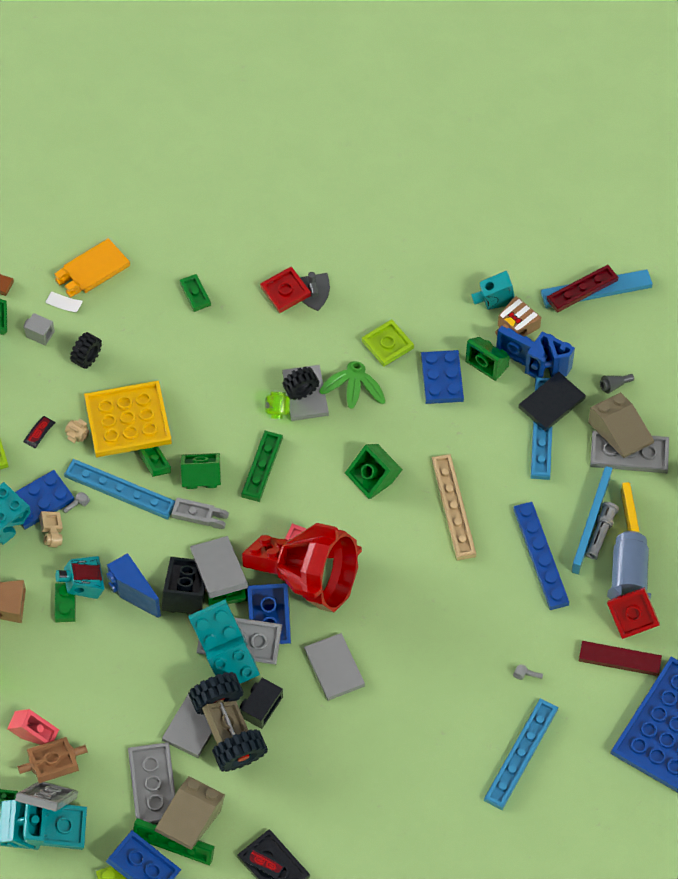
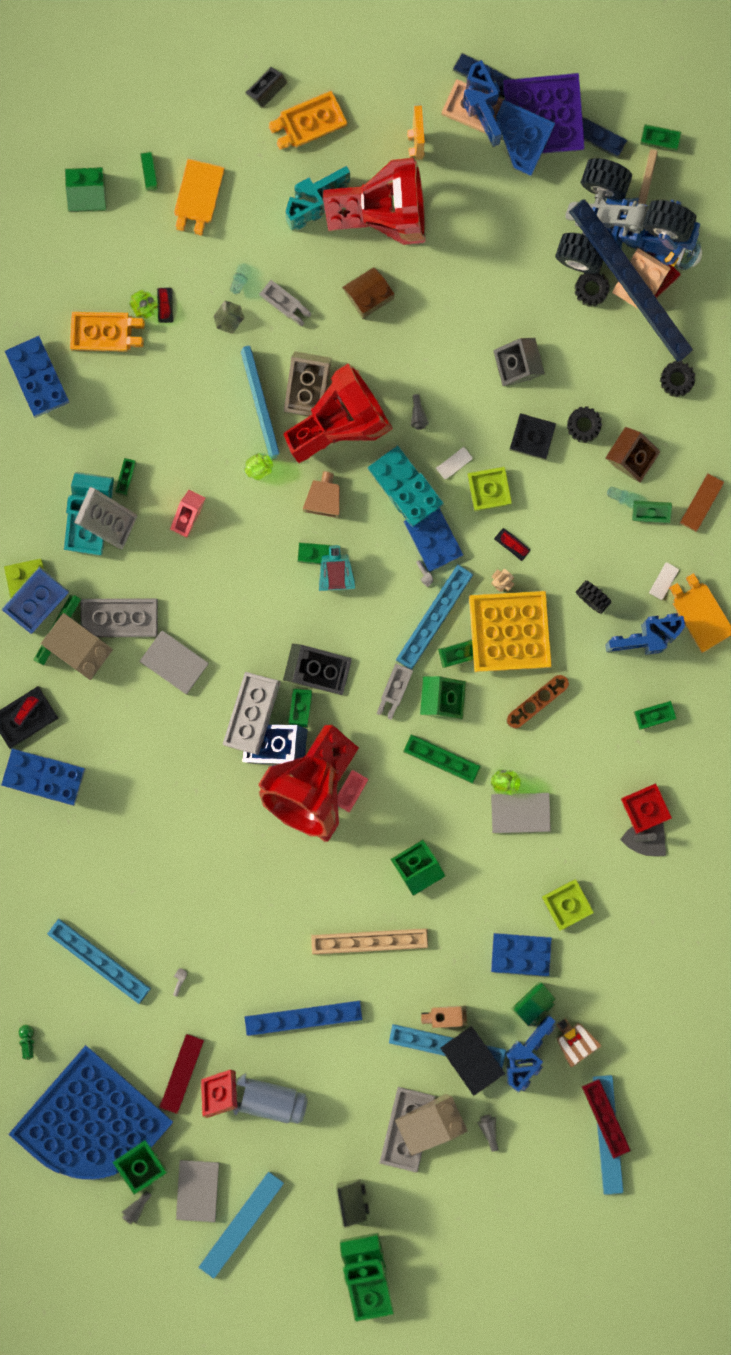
camera: 95 degrees right, 25 degrees up
(39, 329) = (630, 552): light grey brick -> none
(52, 524) = (402, 547): tan plate -> none
(52, 760) = (152, 528): medium nougat plate -> none
(118, 297) = (652, 630): none -> blue piece
(131, 585) = (321, 615): blue slope -> none
(192, 392) = (535, 699): none -> dark orange beam
(219, 567) = (326, 701): light grey tile -> none
(224, 642) = (234, 697): teal piece -> none
(234, 741) = (158, 689): black plate -> none
(261, 702) = (182, 726): black brick -> none
(300, 383) = (520, 807): black tyre -> none
(334, 666) = (212, 799): light grey tile -> none
(336, 829) = (43, 777): none -> blue piece
(355, 374) = (528, 864): bright green plant -> none
(495, 291) = (611, 1033): teal torso -> none
(514, 425) = (454, 1016): none -> medium nougat torso
(591, 521) = (332, 1075): dark azure tile -> none
(604, 522) = (328, 1087): light grey pin -> none
(610, 815) = (26, 1033): none -> green axle
(629, 507) = (335, 1114): yellow tile -> none

